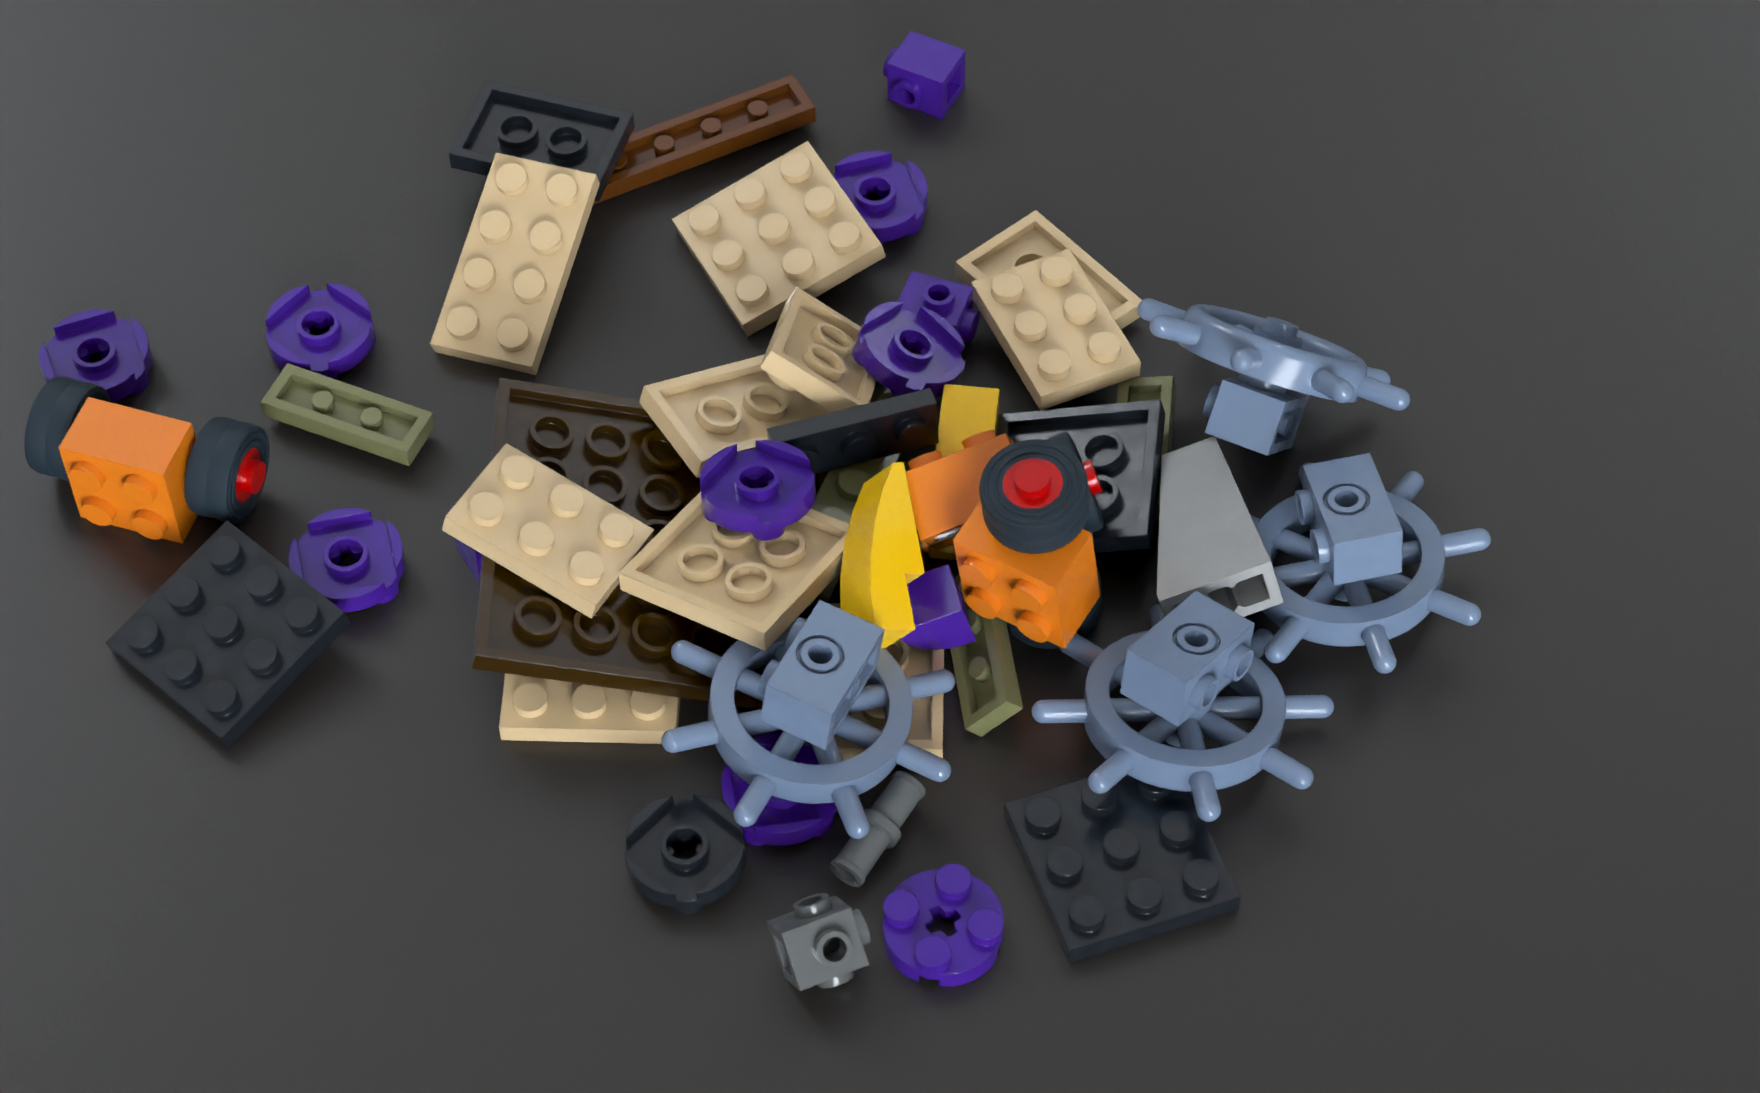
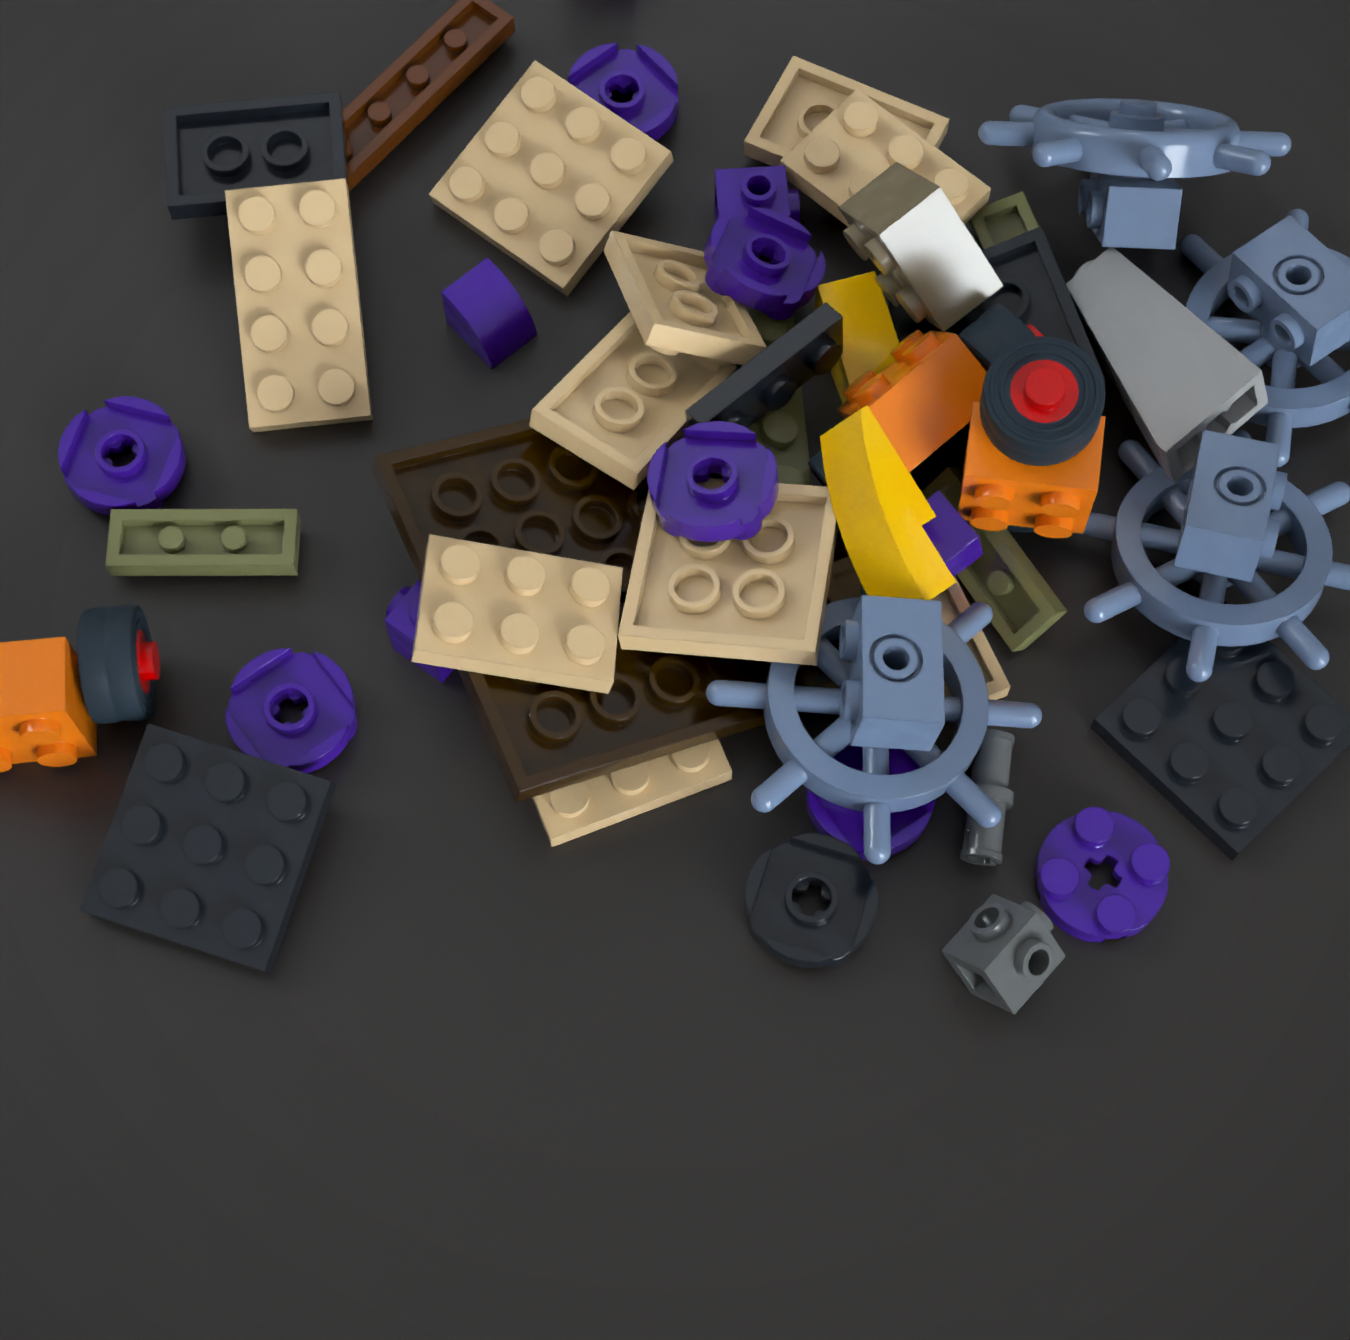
camera: 25 degrees left, 15 degrees up
(669, 322) = (488, 313): none -> dark purple brick
(1028, 371) = (919, 247): none -> dark tan brick

